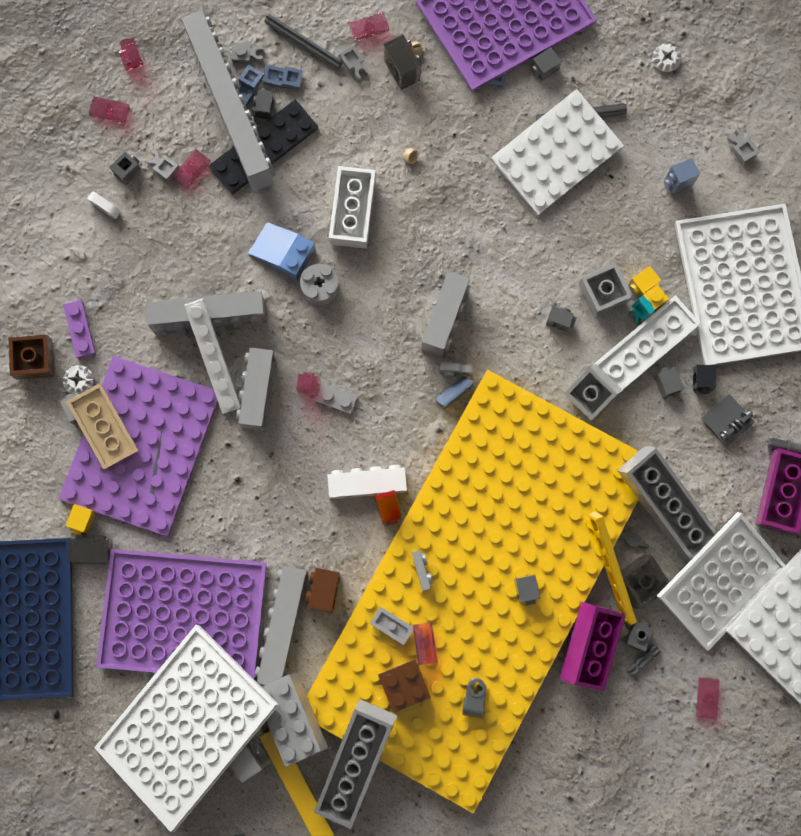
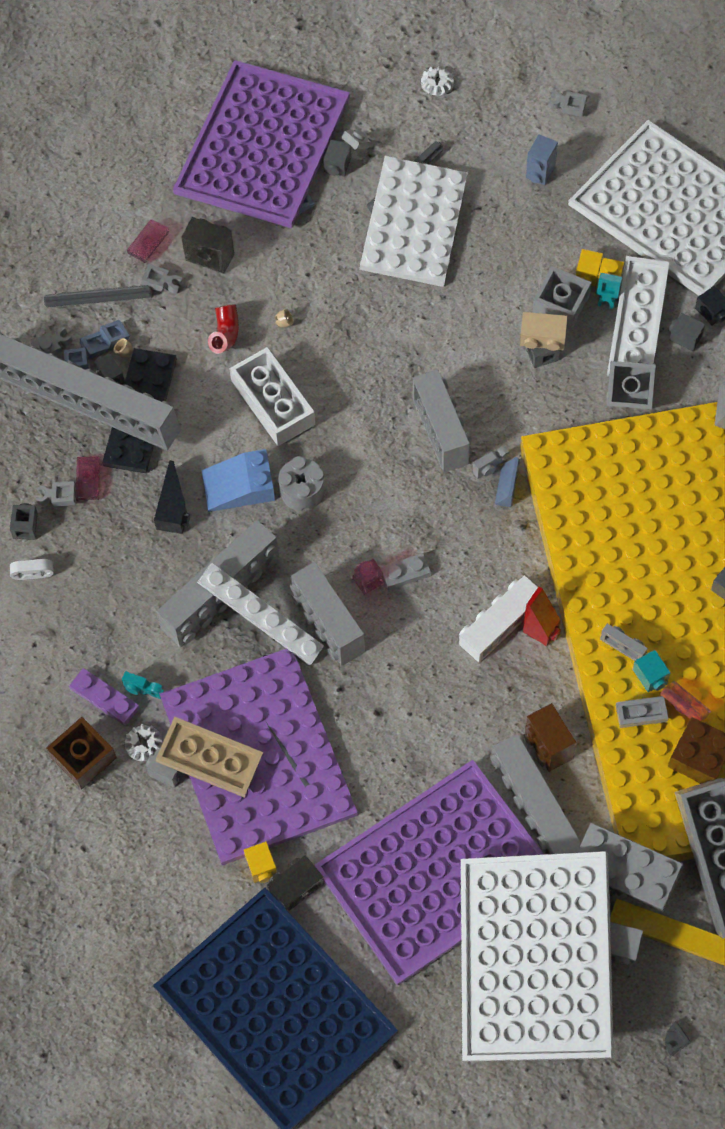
camera: 35 degrees left, 15 degrees down
(103, 338) = (137, 684): none -> teal plate
(226, 232) = (171, 509): none -> black slope
(288, 94) = (123, 348): none -> tan hinge
(364, 135) = (227, 329): none -> red cylinder
(422, 605) = (651, 671): none -> teal brick
(566, 306) = (543, 331): none -> tan brick
(570, 62) = (358, 139): none -> light grey plate

